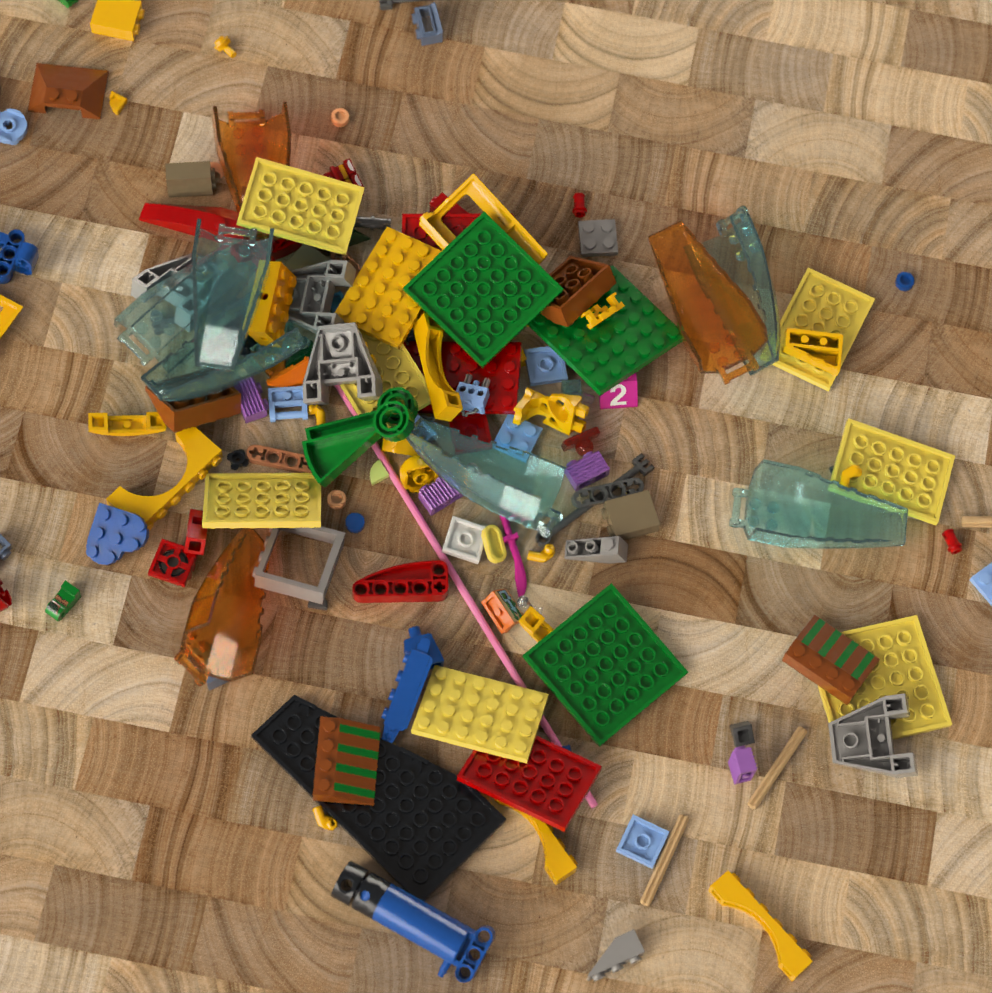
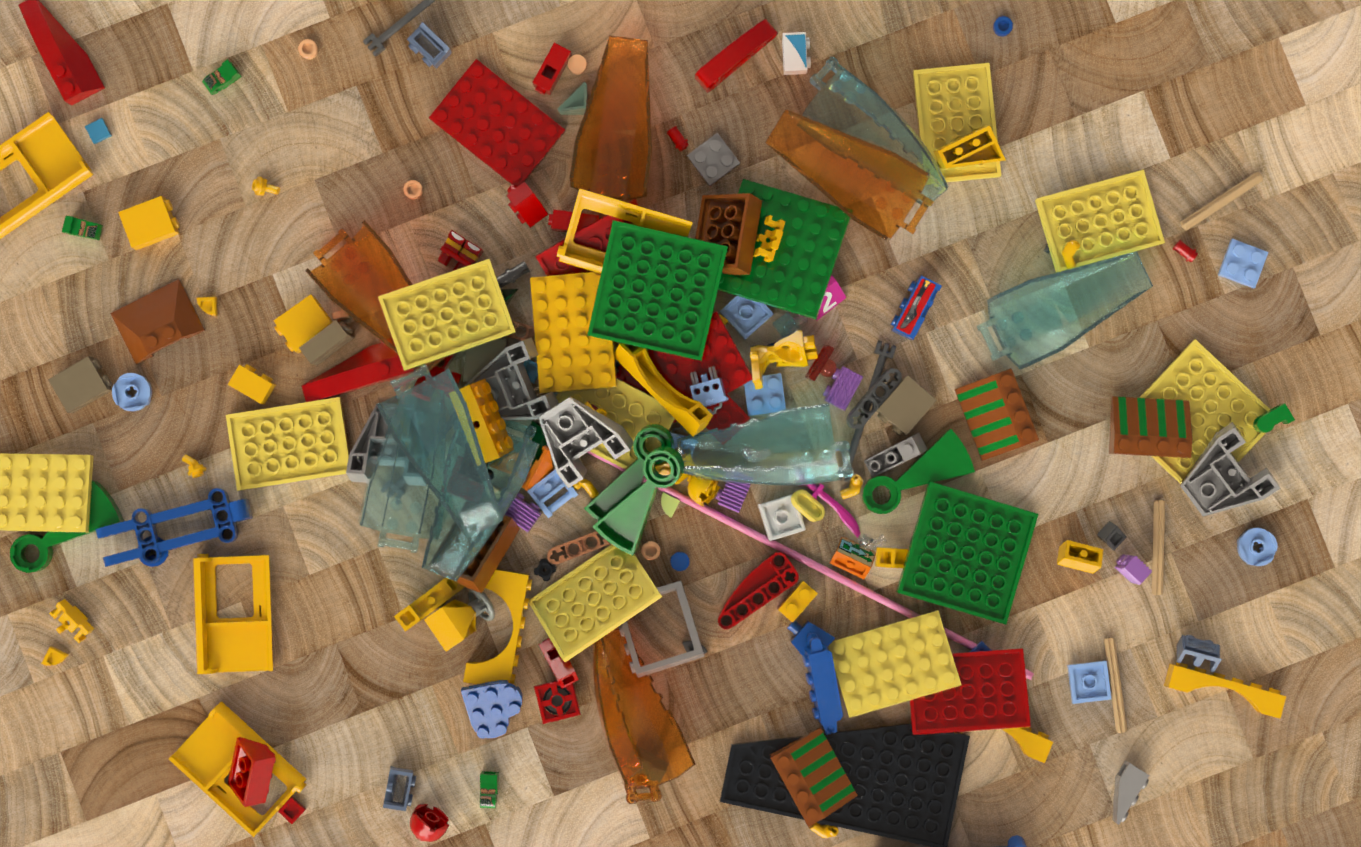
camera: 30 degrees left, 20 degrees up
(14, 210) = (195, 468): none -> yellow plate
(102, 236) = (288, 443): none -> light yellow plate
(107, 177) = (251, 384): none -> yellow brick
(134, 447) = (458, 620): none -> yellow piece
(179, 151) = (302, 322): none -> yellow brick
(423, 175) = (526, 203): none -> red brick
(432, 612) = (797, 601): none -> yellow brick
(441, 111) = (497, 124): none -> red plate
(513, 96) = (551, 69): none -> red brick
(515, 131) = (576, 103): none -> sand green slope
(533, 162) = (615, 134): none -> clear orange windscreen
(535, 106) = (577, 64): none -> light nougat tile
(634, 579) = (942, 461): none -> green piece
(666, 170) = (735, 55): none -> red beam
(691, 443) = (915, 307): none -> wedge
(702, 727) = (1080, 556): none -> yellow brick
(704, 571) = (996, 414): none -> dark orange slope
(718, 198) = (795, 53): none -> white brick
(758, 872) = (1200, 649): none -> sand blue window
(858, 829) = (1267, 551): none -> light blue plate
(945, 716) = (1269, 419): none -> green leg

